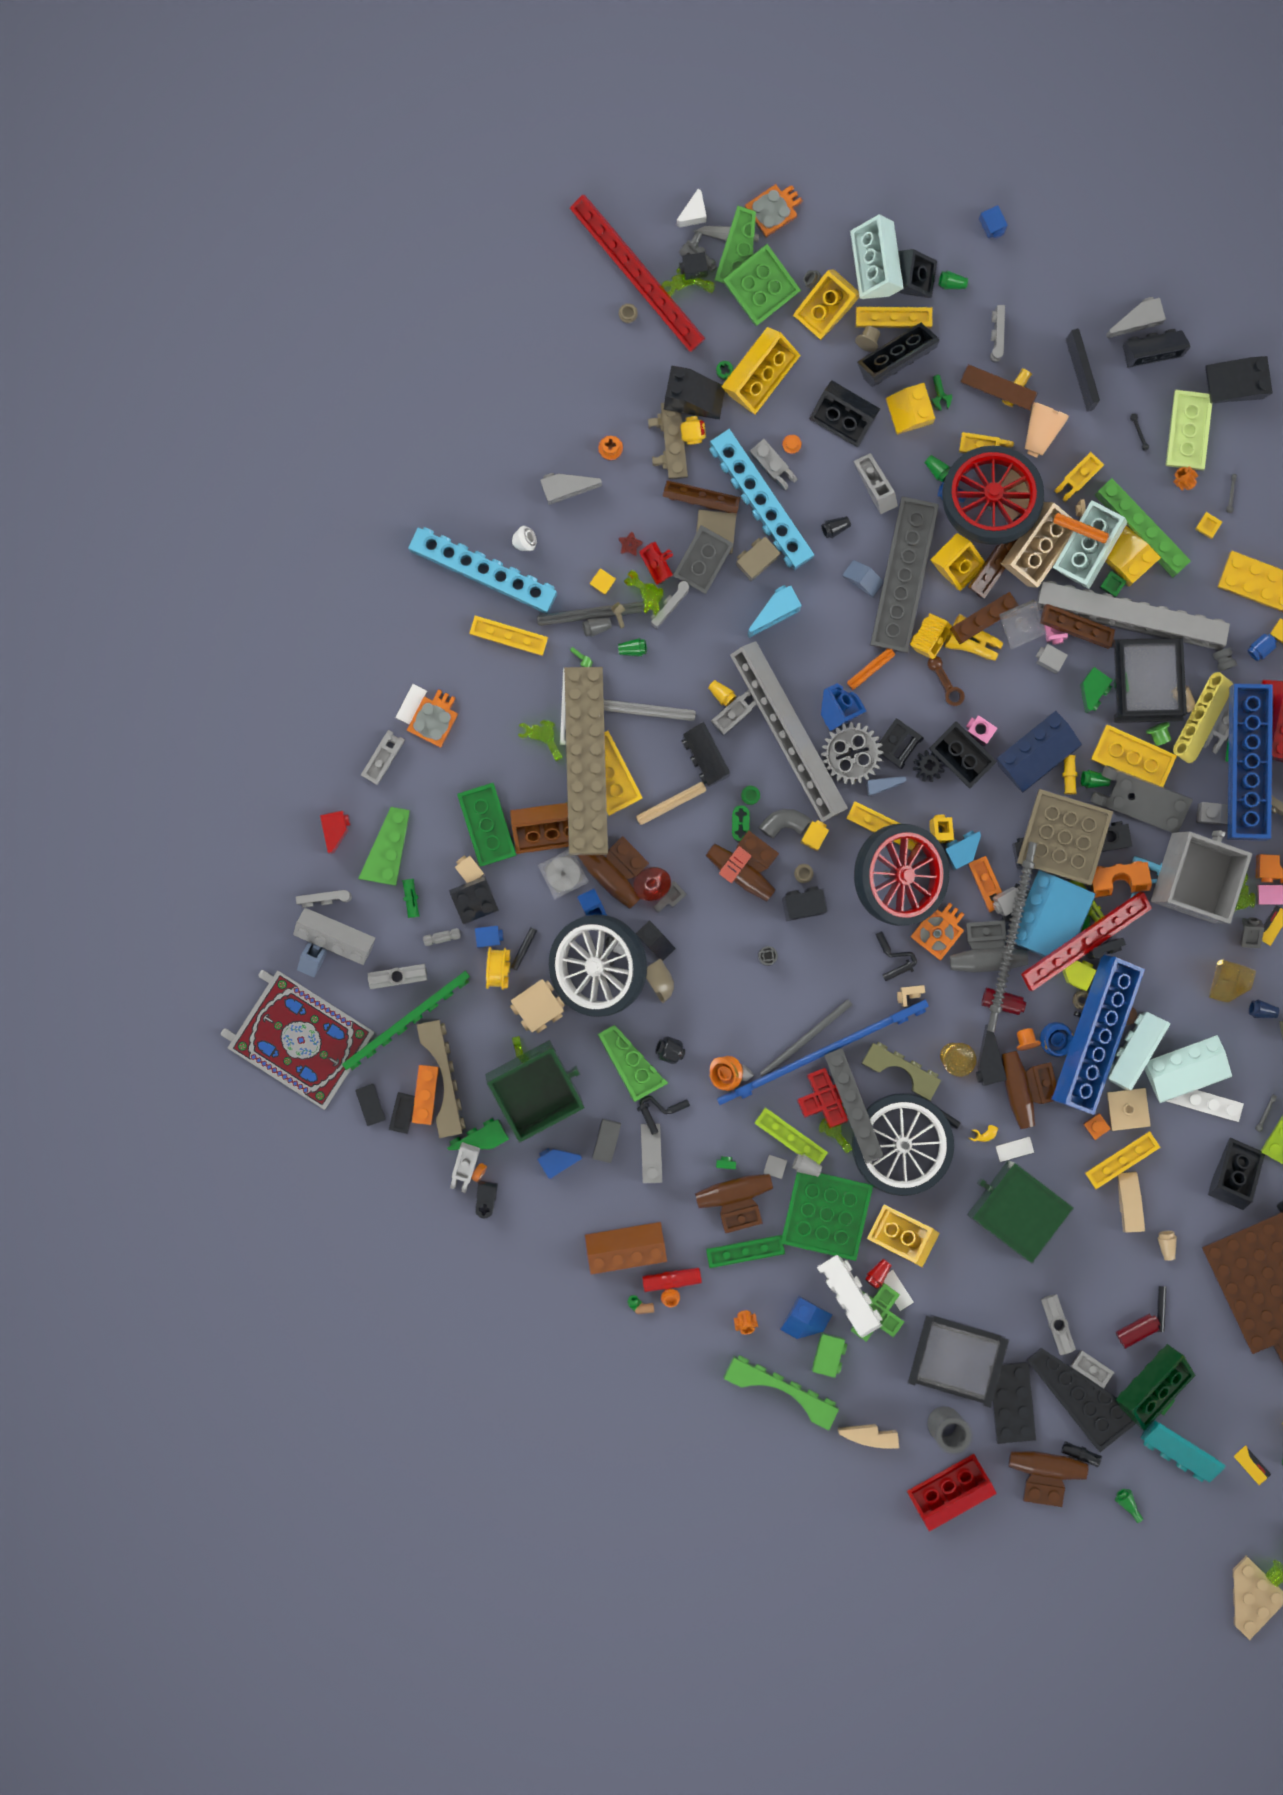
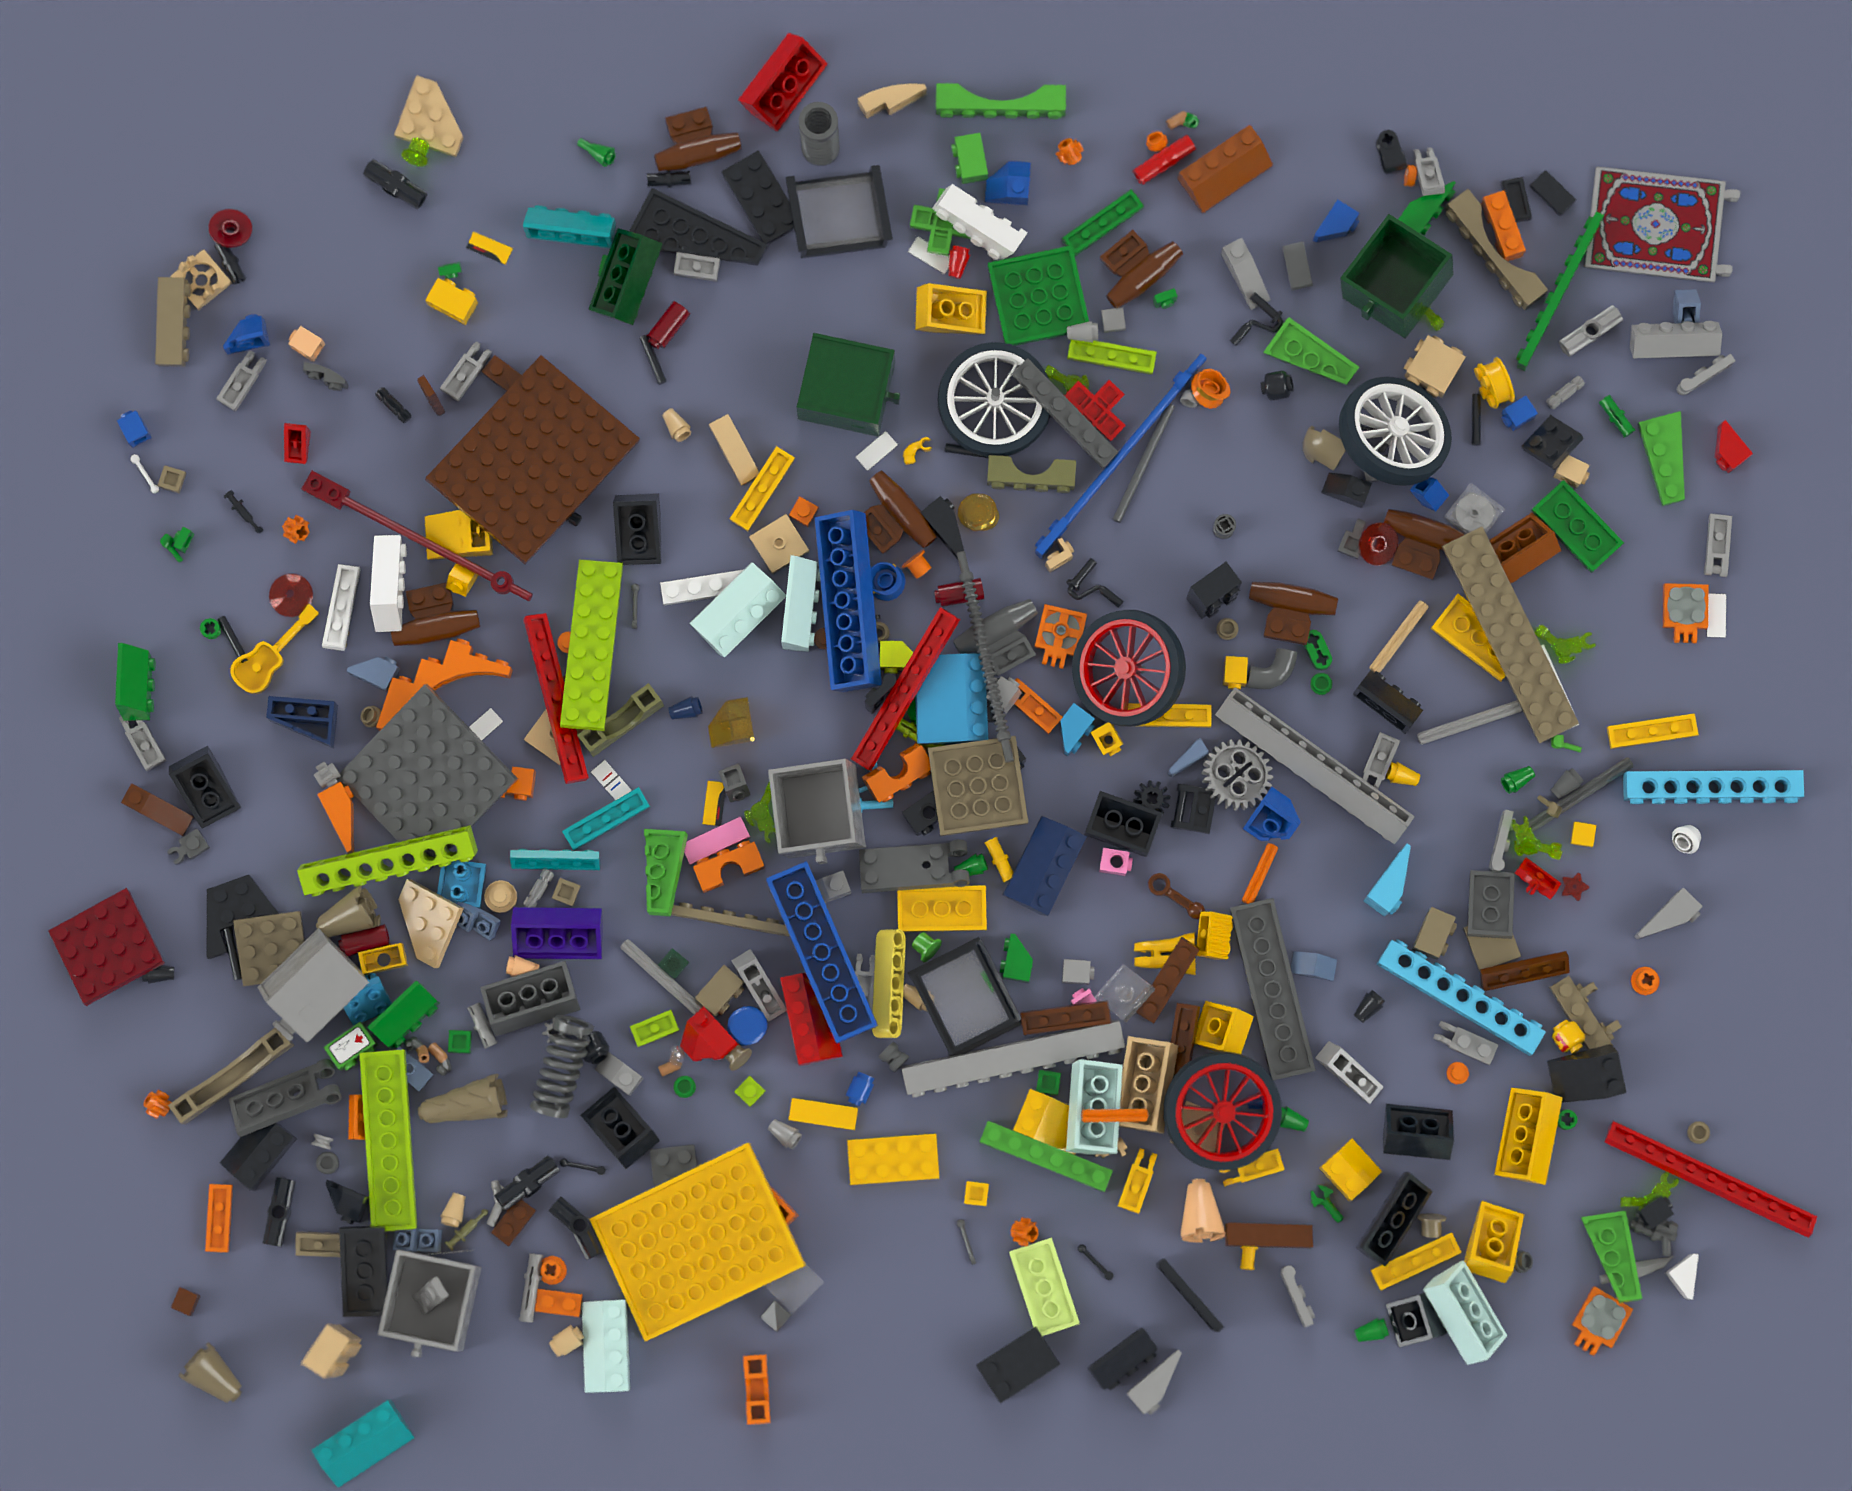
camera: 155 degrees right, 5 degrees down
(735, 864) = (1304, 600): clear red sticker -> none
(761, 285) = (1574, 1227): bright green plate -> none
(993, 222) = (1359, 1415): blue brick -> none
(1061, 1336) = (761, 304): light grey piece -> none

